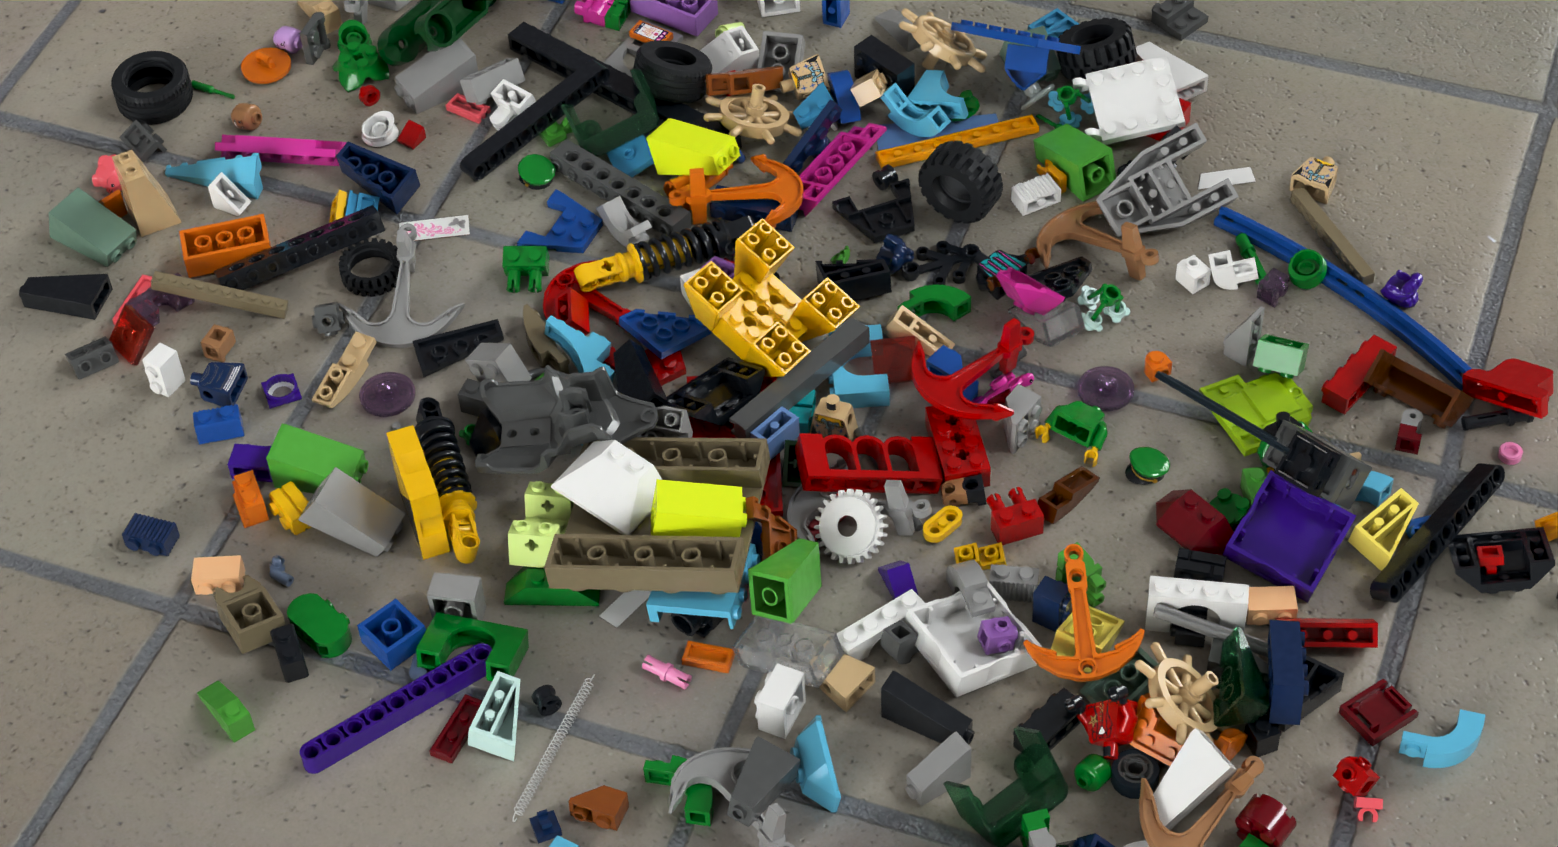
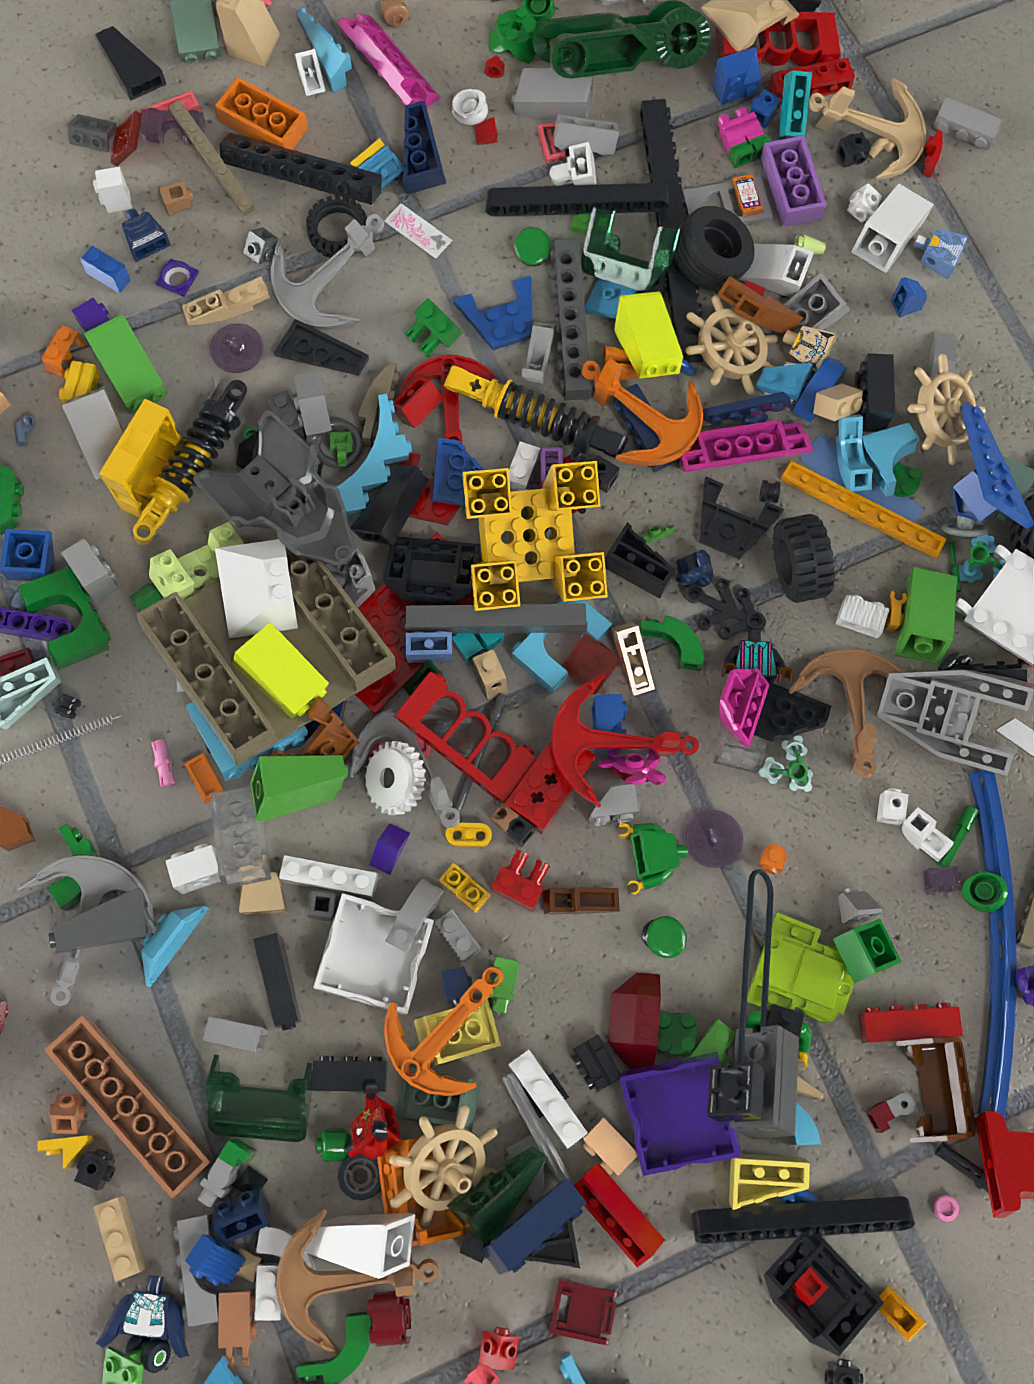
camera: 40 degrees right, 25 degrees up
(997, 635) = (382, 968): medium lavender brick -> none

